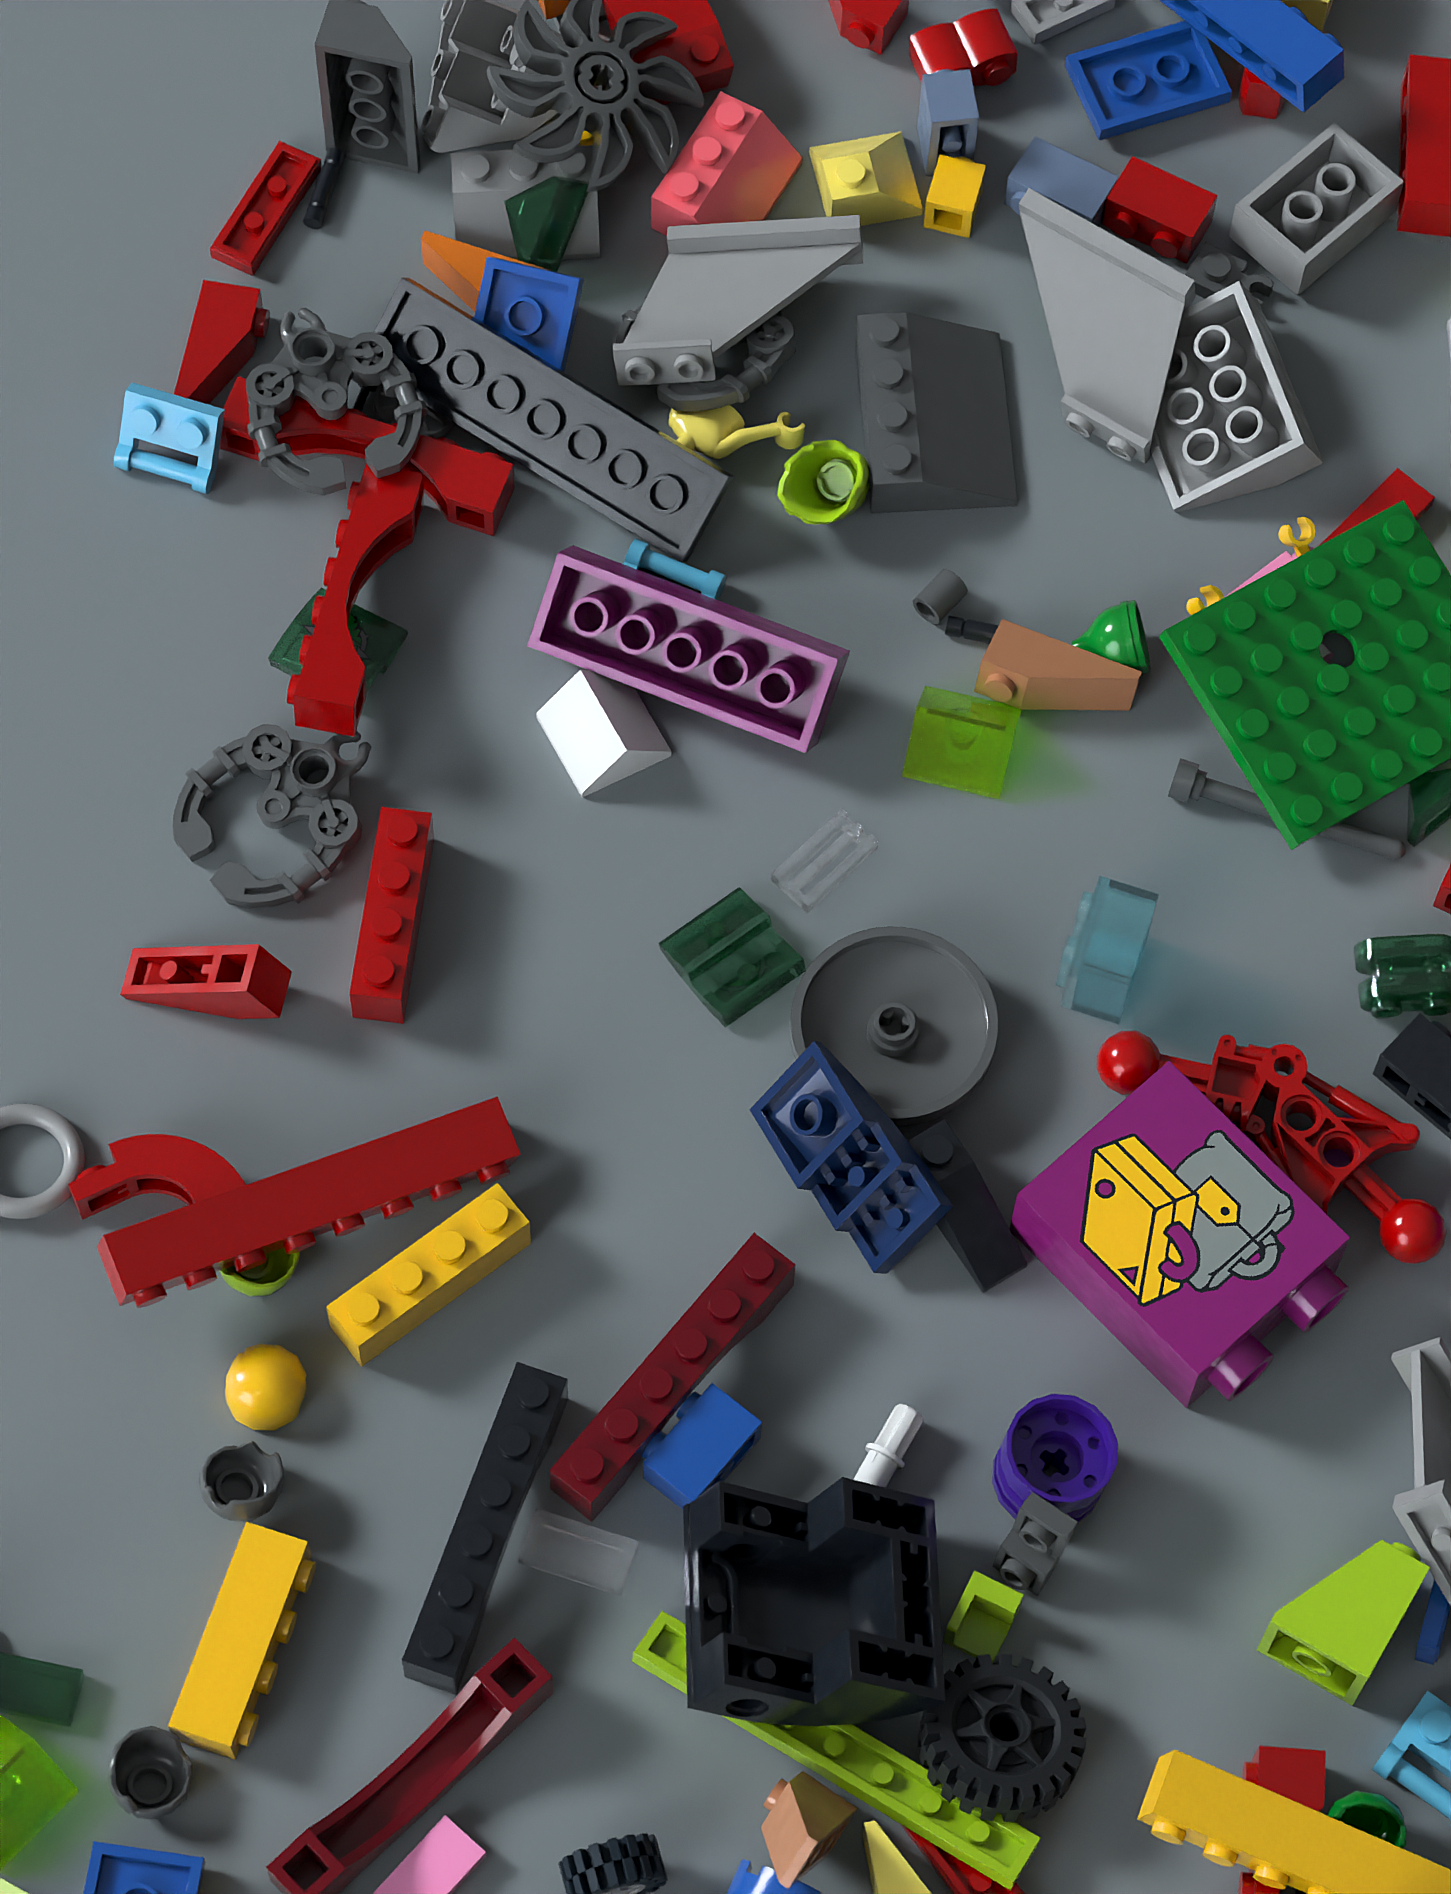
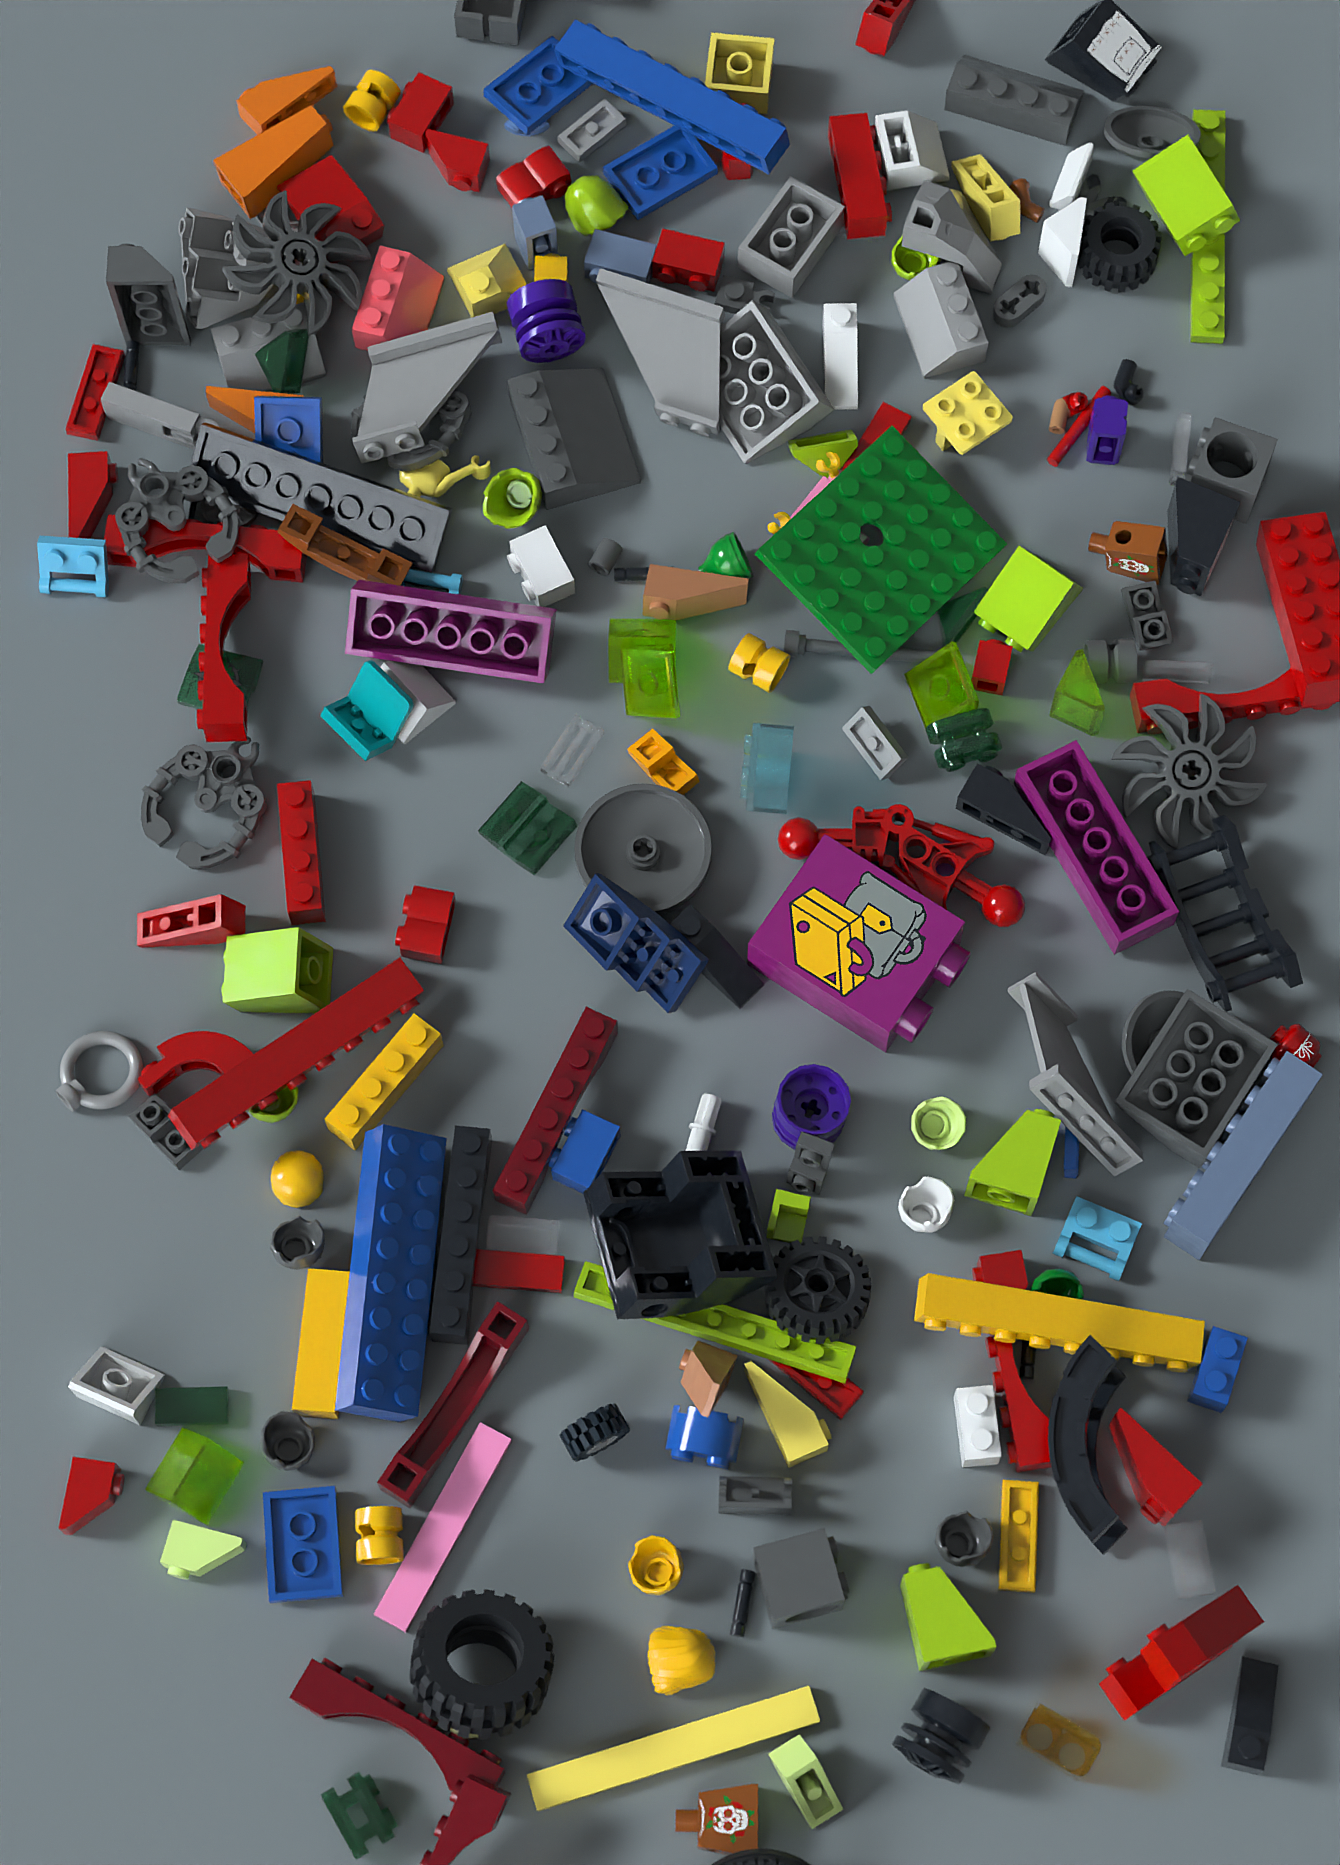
camera: 10 degrees left, 5 degrees up
(80, 1263) = (155, 1124): none -> dark grey slope
(313, 1078) = (277, 972): none -> slope
(336, 254) = (152, 415): none -> light grey hinge
(366, 1561) = (391, 1274): none -> blue brick
(545, 739) = (370, 713): none -> teal bracket
(549, 1060) = (426, 925): none -> red brick
(554, 502) = (339, 552): none -> dark orange slope
(560, 1602) = (519, 1271): none -> red tile
(843, 590) = (541, 567): none -> white brick
(933, 246) = (546, 320): none -> dark purple wheel
(952, 909) = (662, 764): none -> light orange slope
(962, 785) = (650, 681): none -> clear neon green slope
(1040, 103) = (593, 204): none -> lime hair
(1133, 799) = (758, 662): none -> yellow wheel
(1196, 1650) = (926, 1205): none -> white hair
(1242, 1531) = (938, 1123): none -> yellowish green hair
(1274, 950) = (875, 742): none -> light grey plate
(1275, 510) = (814, 448): none -> lime slope
(1350, 389) = (840, 355): none -> white slope
(1393, 889) = (942, 685): none -> clear neon green slope

